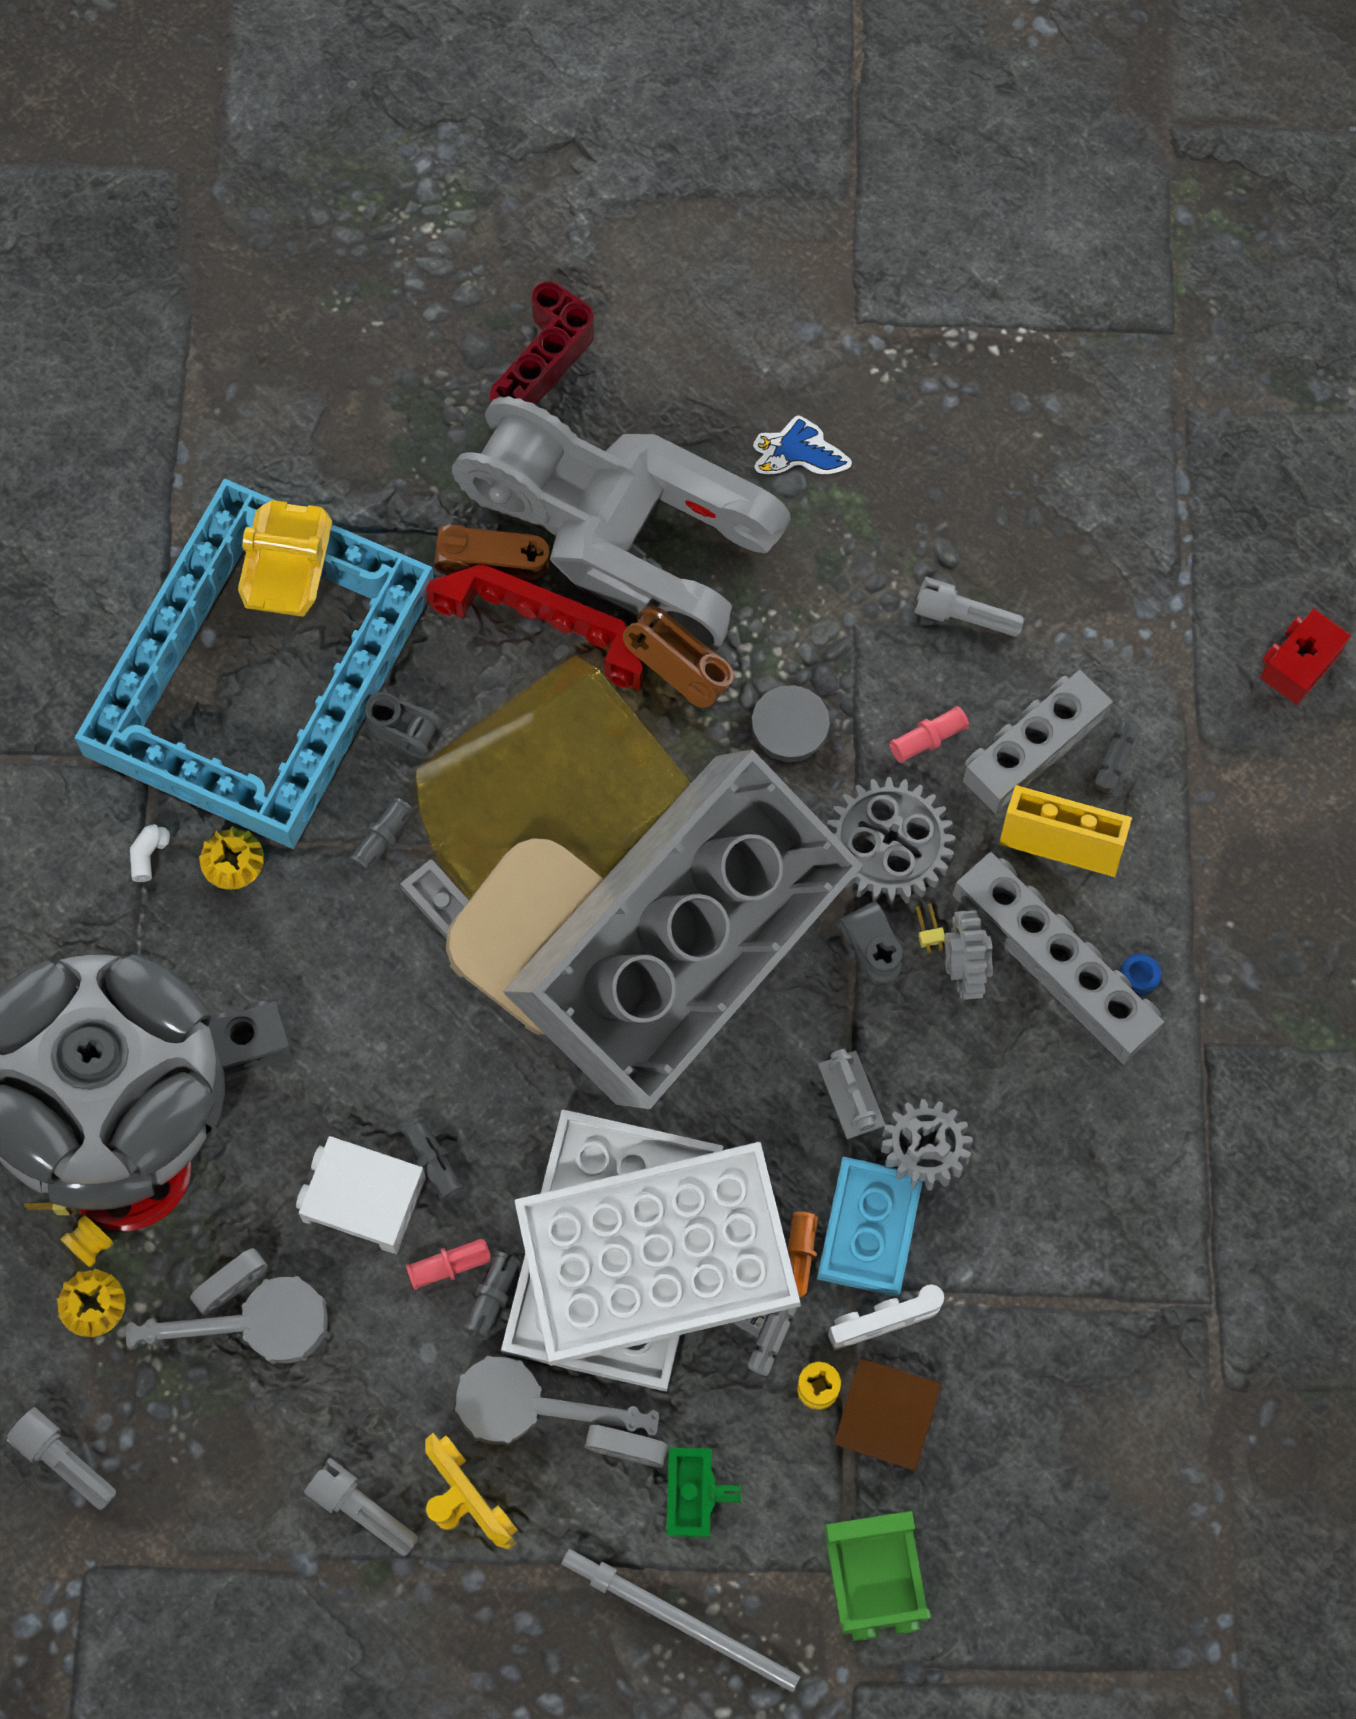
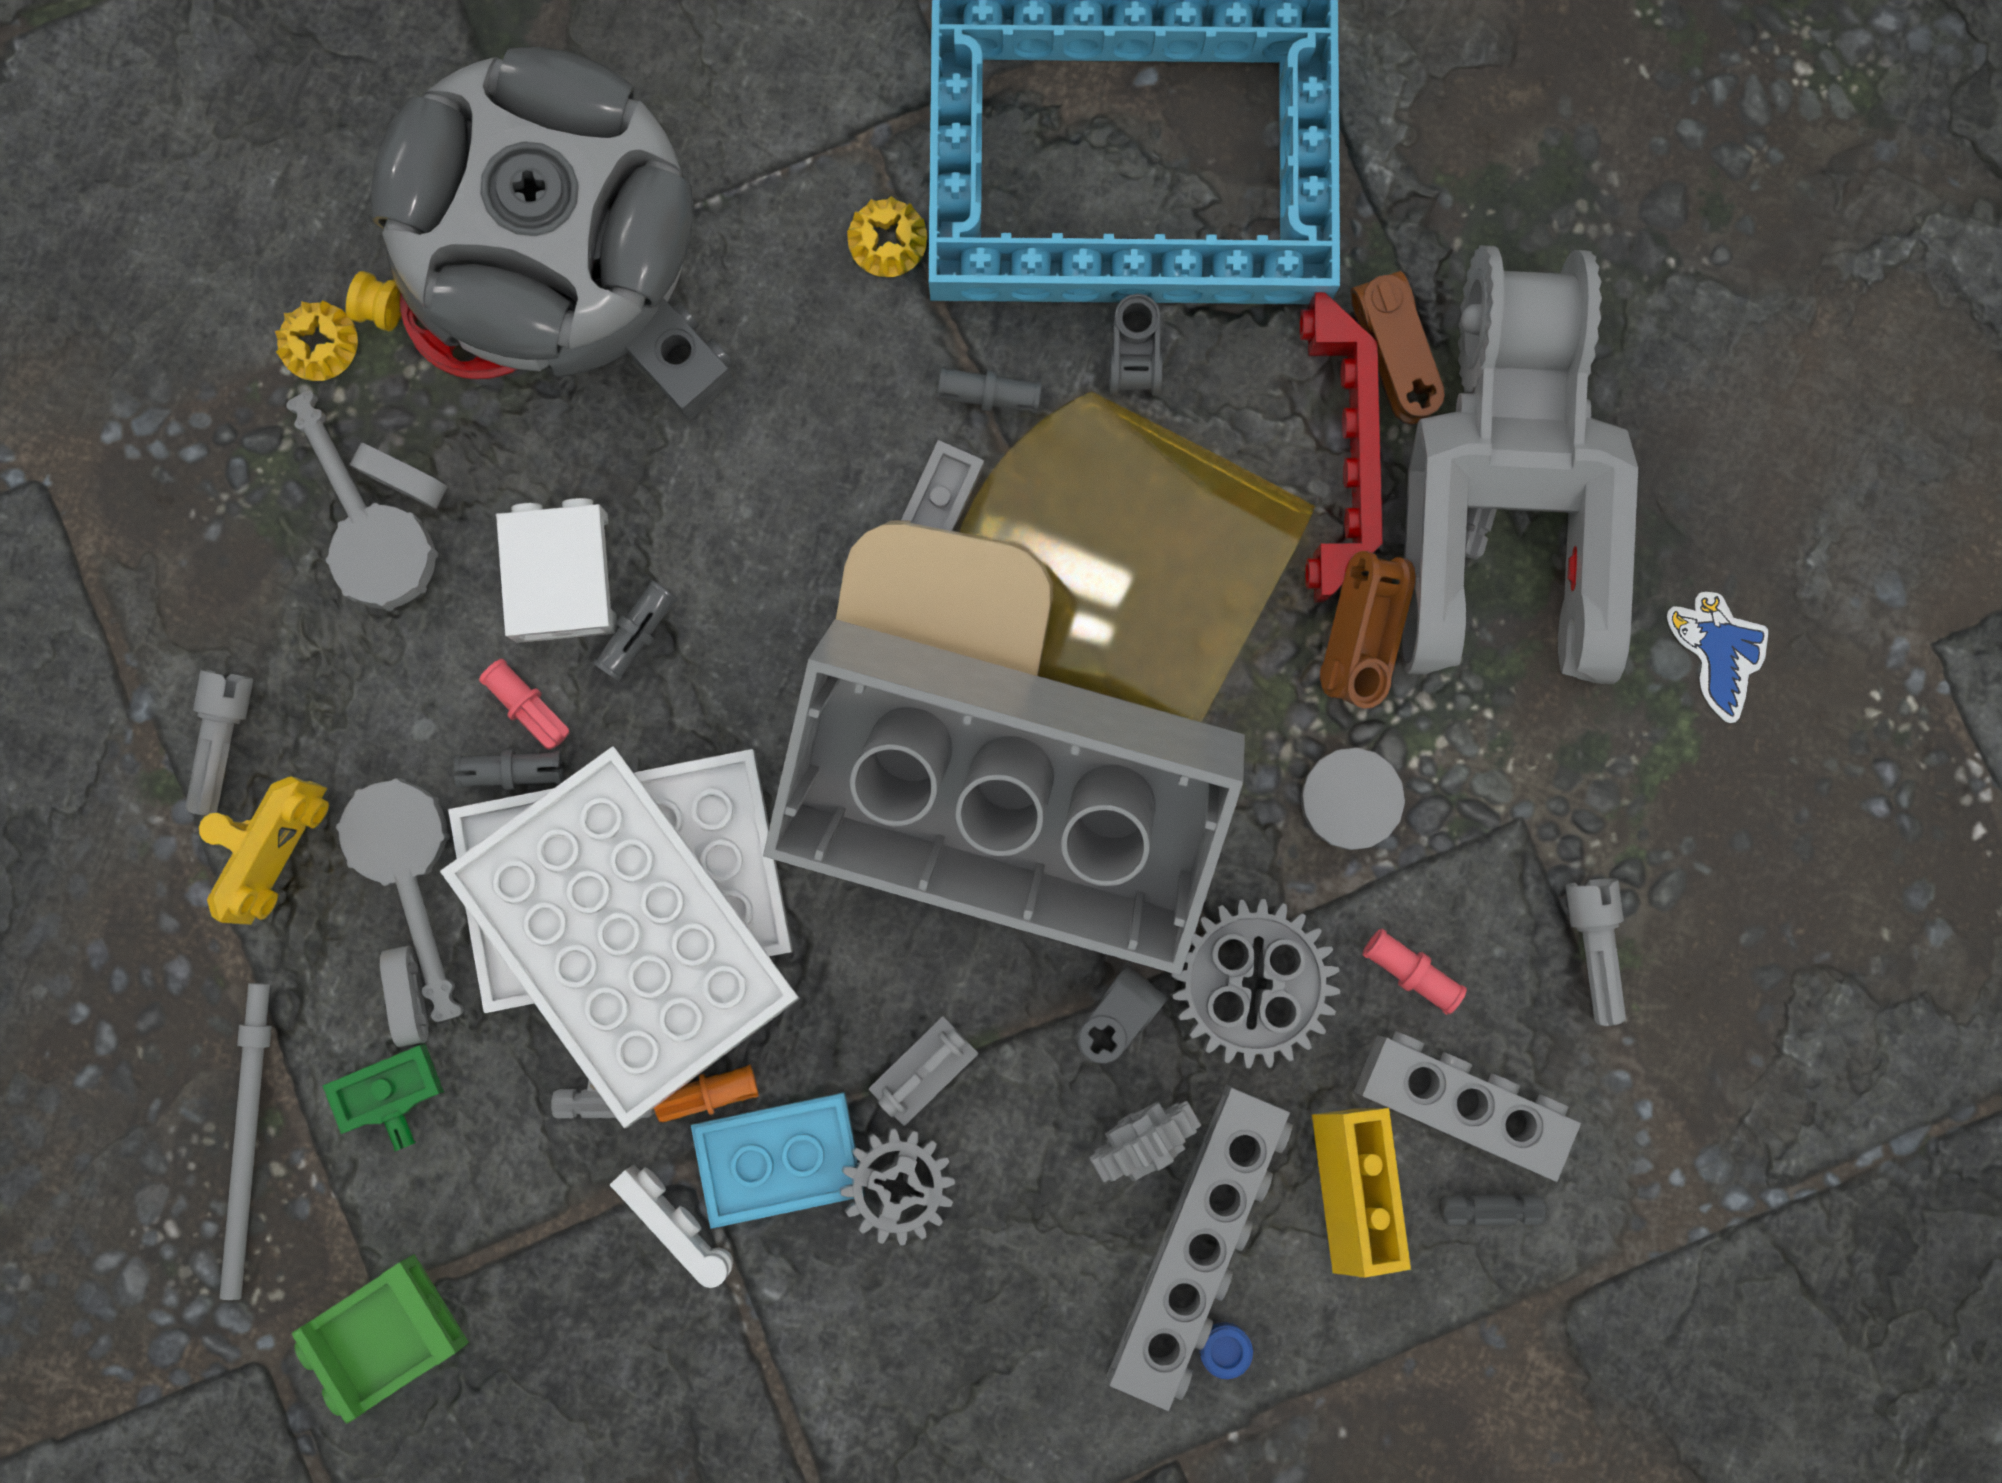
camera: 65 degrees right, 15 degrees up
(40, 1440) = (140, 359): light grey piece -> none
(142, 849) = (851, 133): white arm -> none
(284, 557) = (1265, 105): yellow shield -> none
(556, 334) = (1683, 277): dark red beam -> none
(815, 1393) = (575, 1180): yellow wheel -> none
(887, 1413) = (567, 1273): reddish brown slope -> none
(930, 937) = (1161, 1083): piece -> none
(1319, 641) = (1763, 1411): red brick -> none

